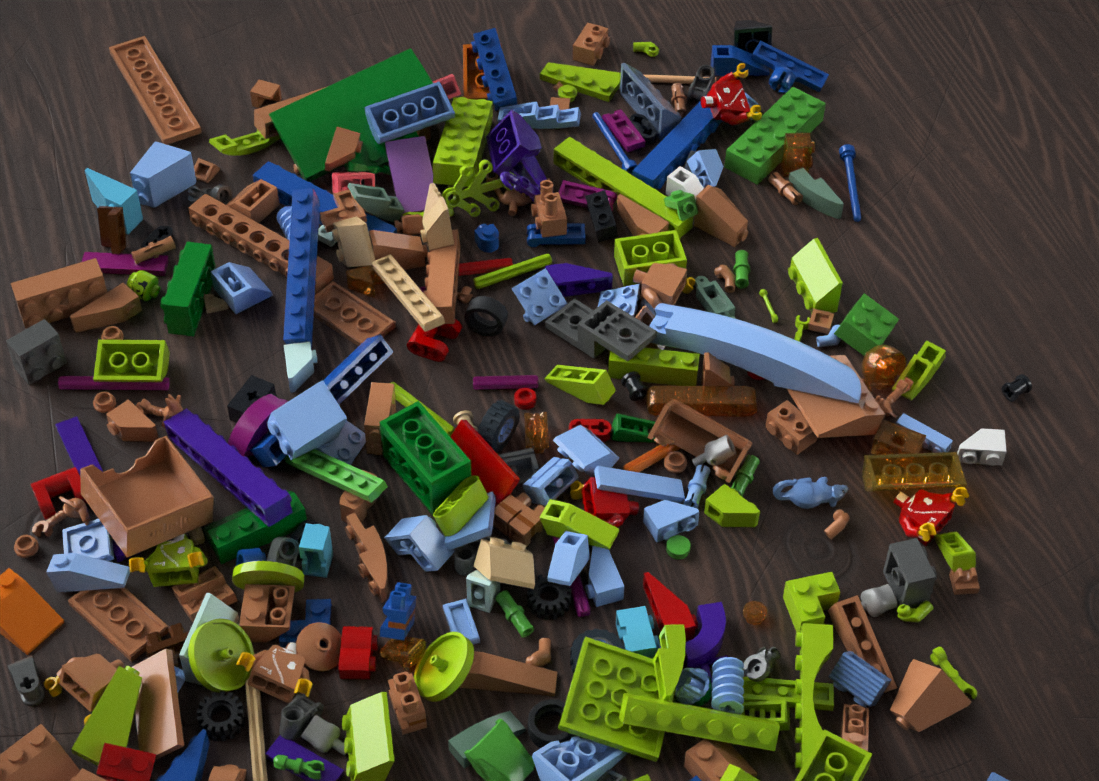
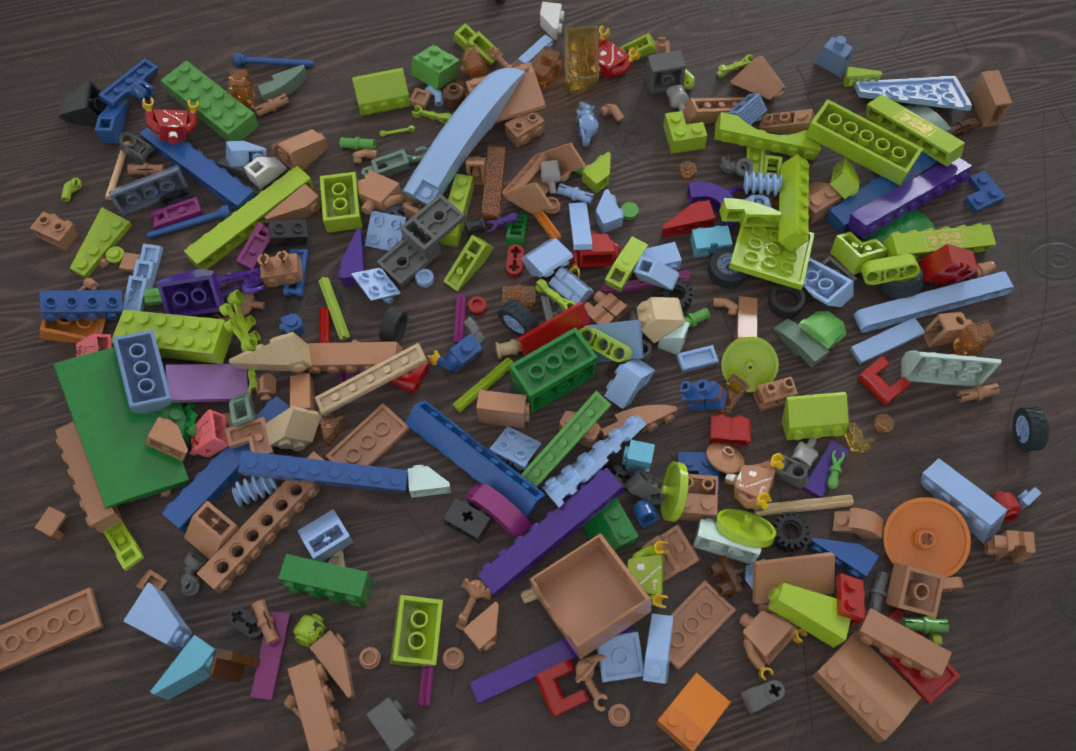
camera: 85 degrees left, 15 degrees up
(301, 490) = (589, 463): none -> light blue wing
(307, 421) = (517, 458): light blue slope -> none
(457, 382) = (464, 351): none -> blue torso
(528, 80) = (89, 284): none -> nougat hand
(543, 448) = (542, 286): none -> lime piece
(559, 347) = (424, 278): none -> light blue tile
(642, 410) = (501, 221): none -> dark purple piece
(683, 202) = (288, 169): bright green bracket -> none
(829, 345) = (454, 95): none -> reddish brown head

